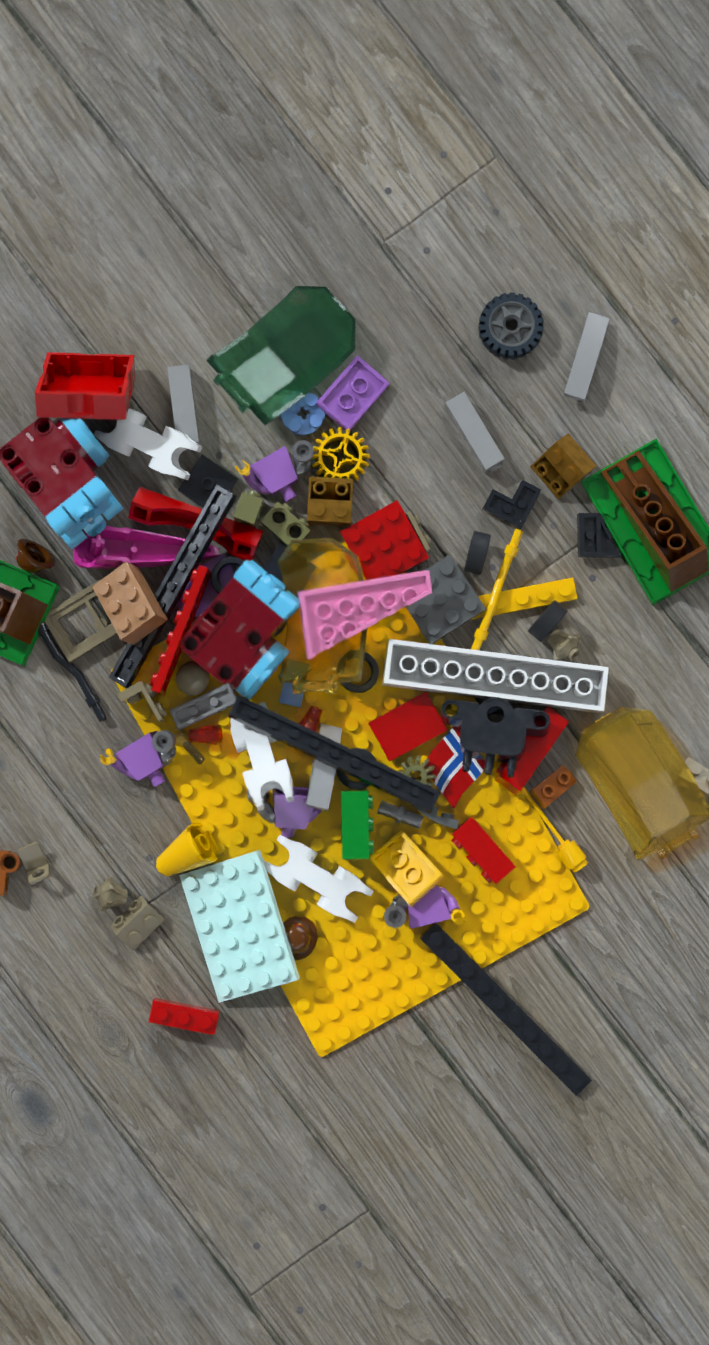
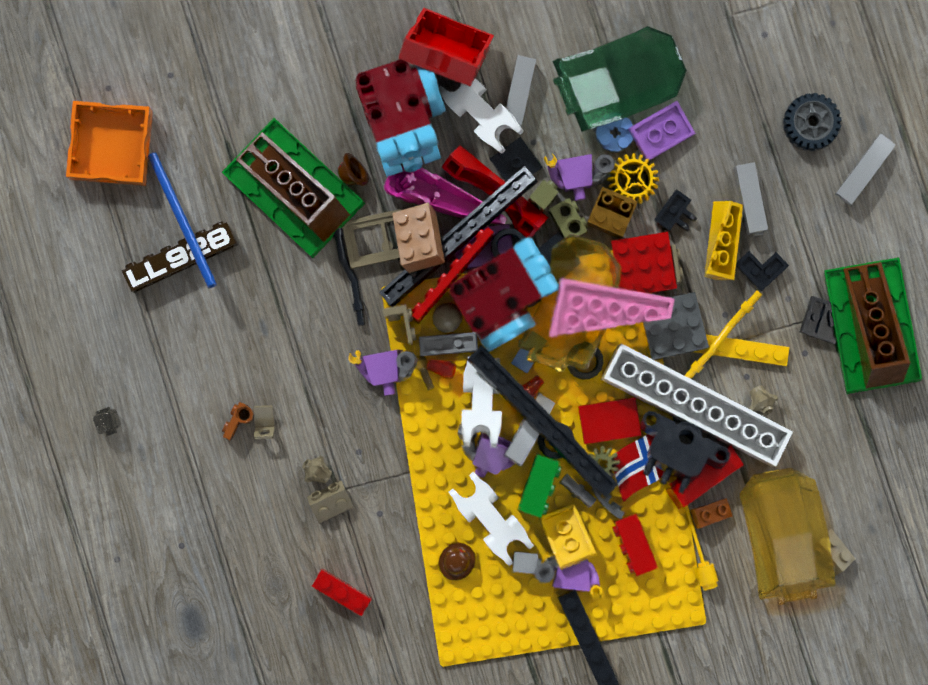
camera: 15 degrees right, 0 degrees up
(188, 851) = (392, 458): yellow cone -> none
(239, 926) = (413, 535): light aqua plate -> none
(371, 912) = (525, 562): none -> light grey brick
(395, 475) = (672, 211): none -> black hinge
(461, 487) = (723, 240): none -> yellow wedge
(477, 552) = (718, 298): black tyre -> none
(547, 621) = (756, 375): black tyre -> none
(563, 466) = (814, 252): pearl gold slope -> none

